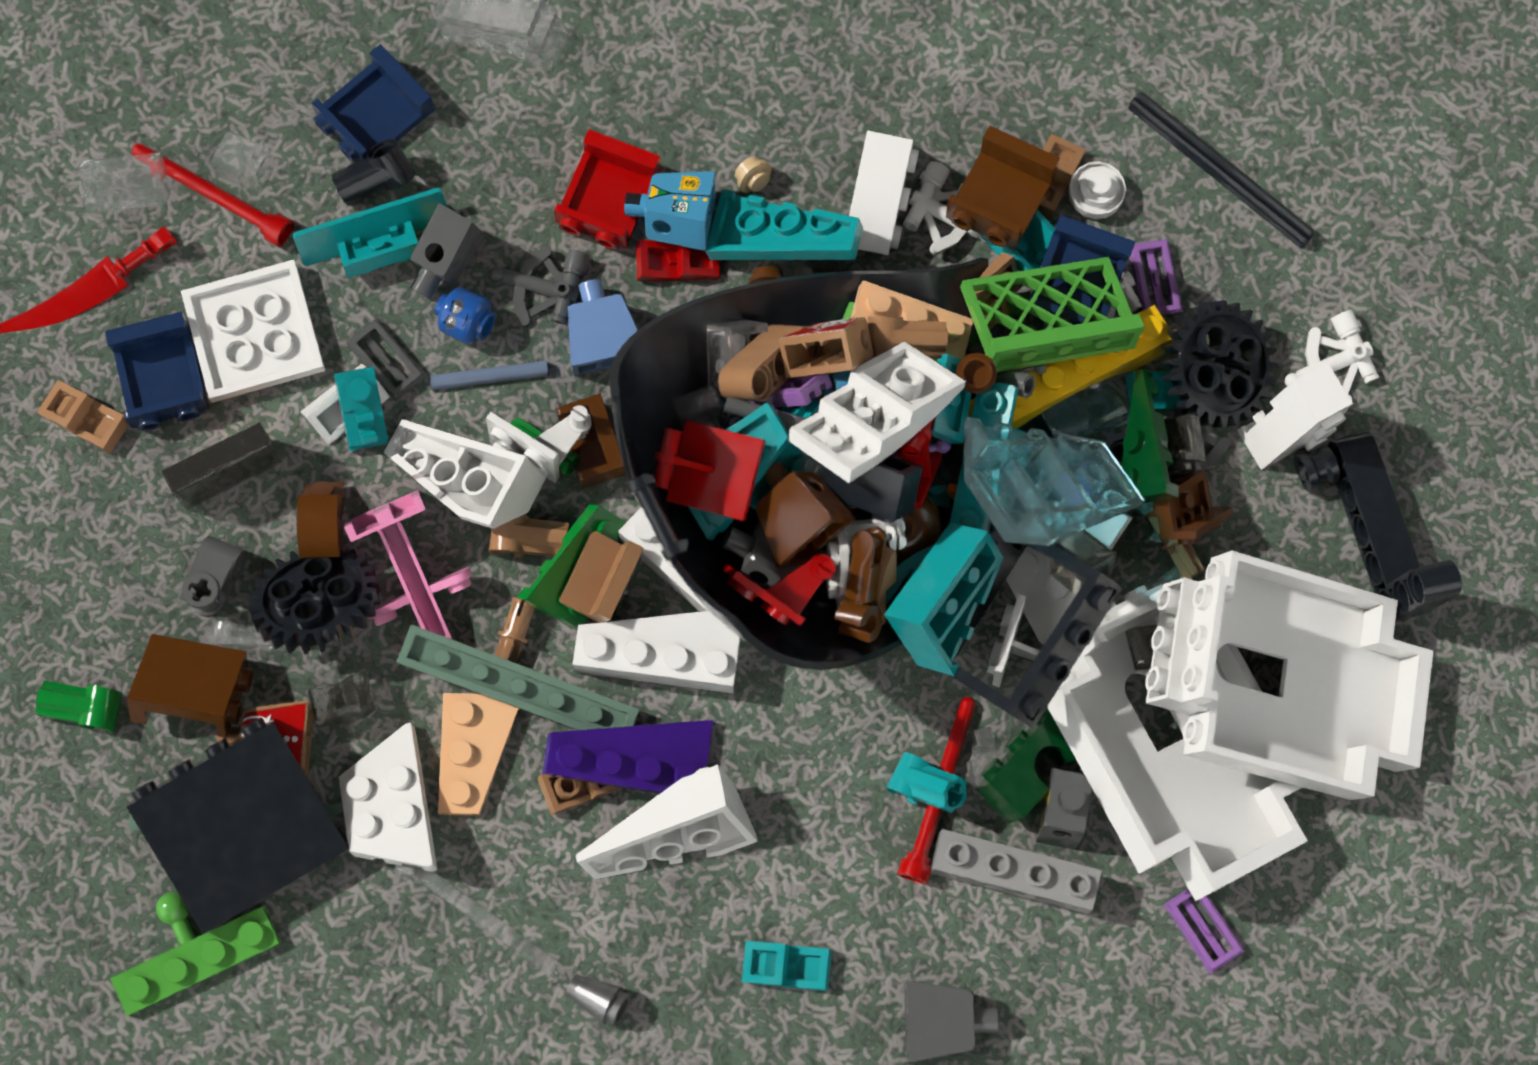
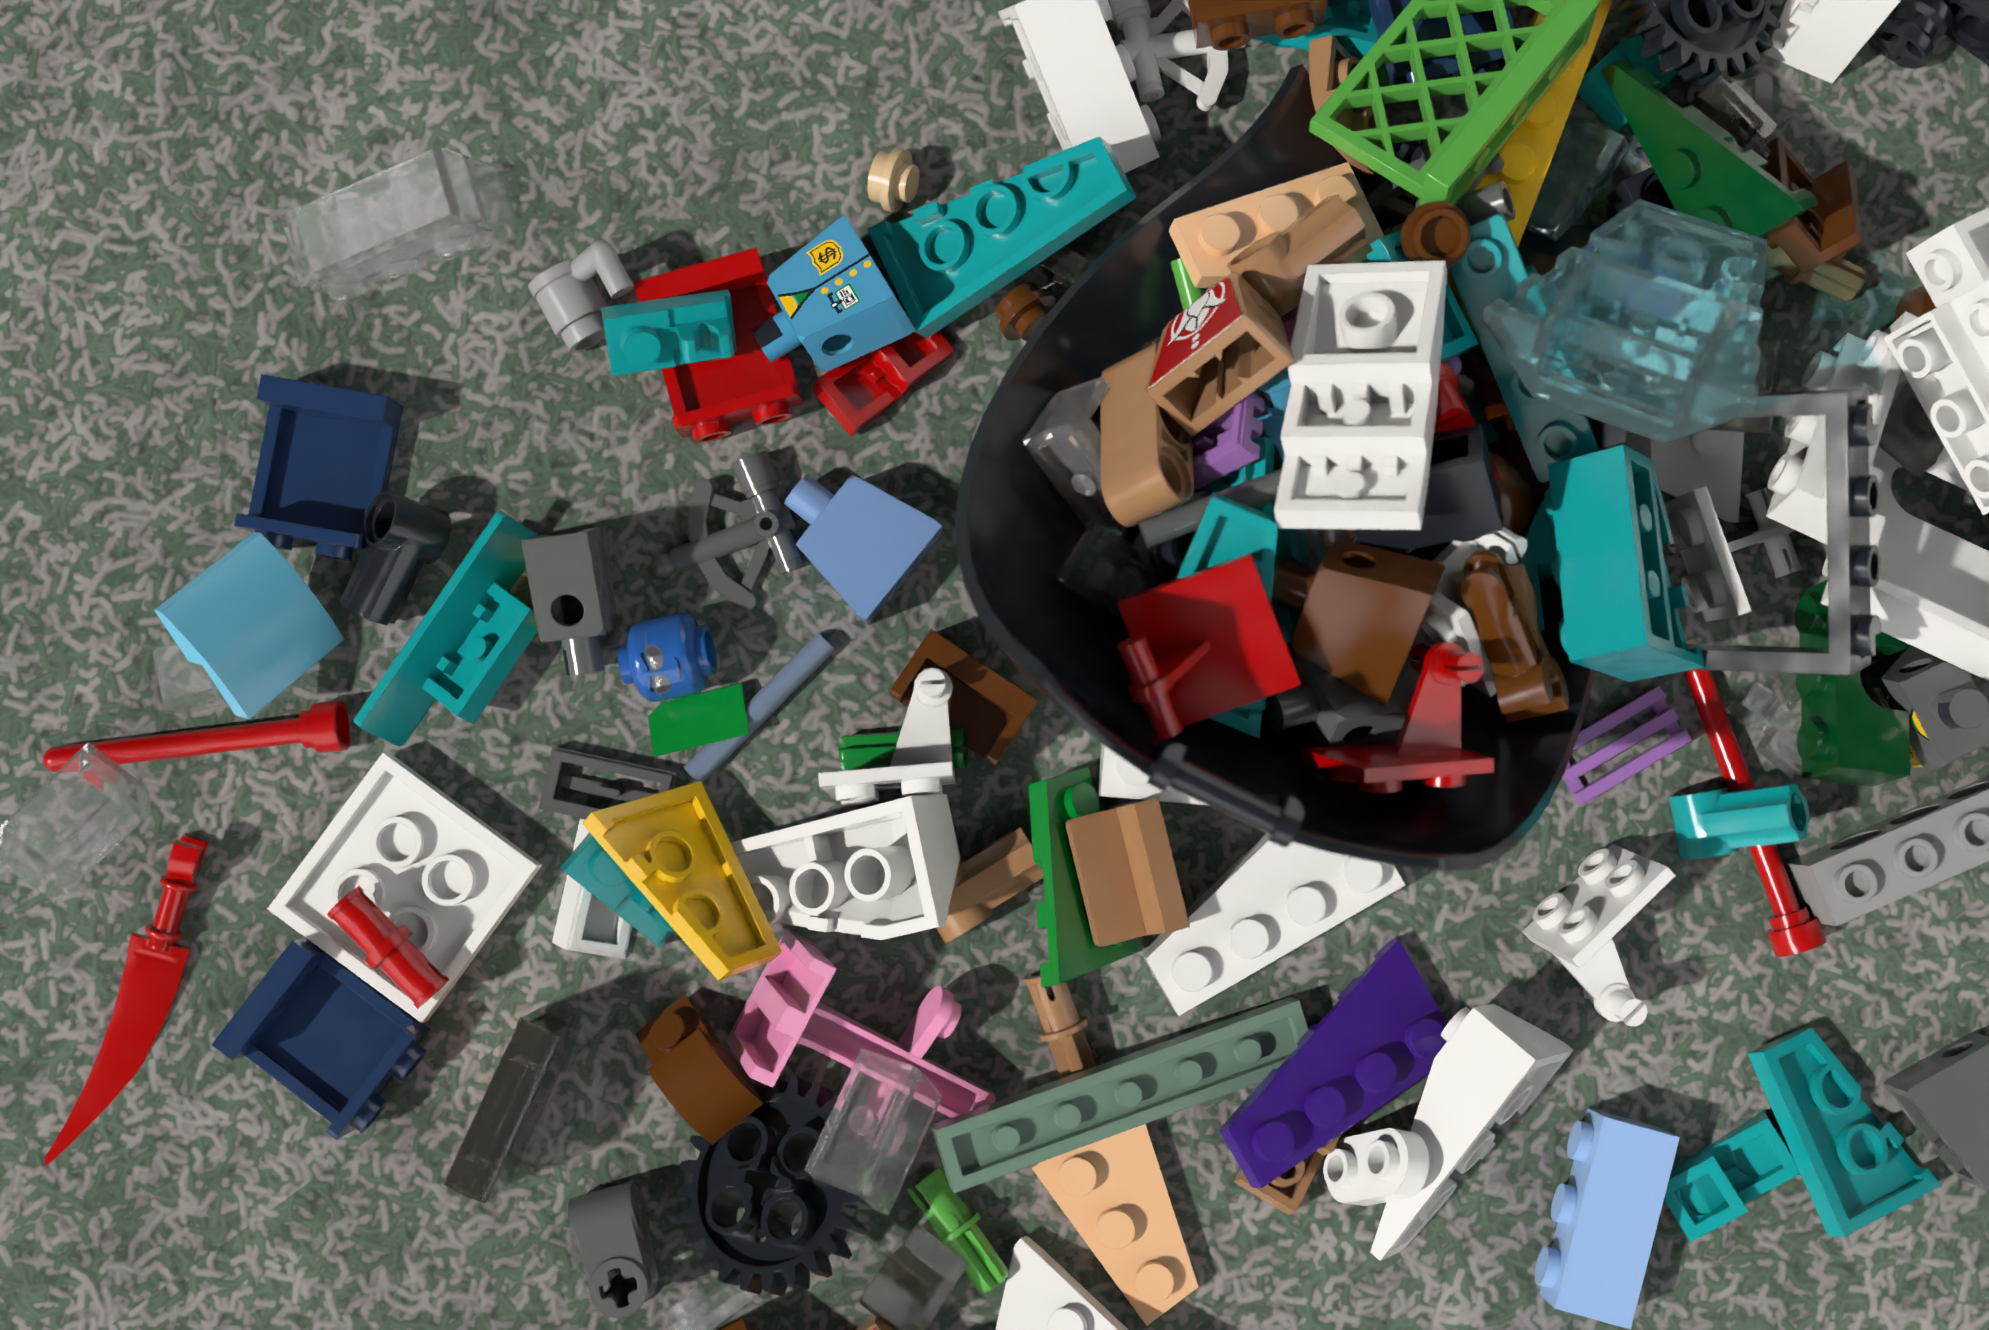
camera: 35 degrees left, 10 degrees up
(83, 416) = (274, 1168): medium nougat slope -> none
(223, 348) = (388, 946): none -> red pin
(282, 152) = (250, 624): none -> medium azure slope
(383, 603) = (875, 1129): none -> clear panel
(384, 694) = (958, 1229): none -> bright green axle
(393, 421) = (690, 874): none -> yellow wing
(455, 358) = (698, 720): none -> green sticker
(555, 116) = (572, 297): none -> light grey piece
(587, 165) = (669, 332): none -> teal plate
(610, 814) = (1377, 1167): none -> white plate
(708, 932) = (1606, 1217): none -> light blue brick
(801, 785) = (1585, 917): none -> white plate
(855, 989) = (1836, 1140): none -> teal wing
(932, 714) = (1664, 718): none -> medium lavender tile

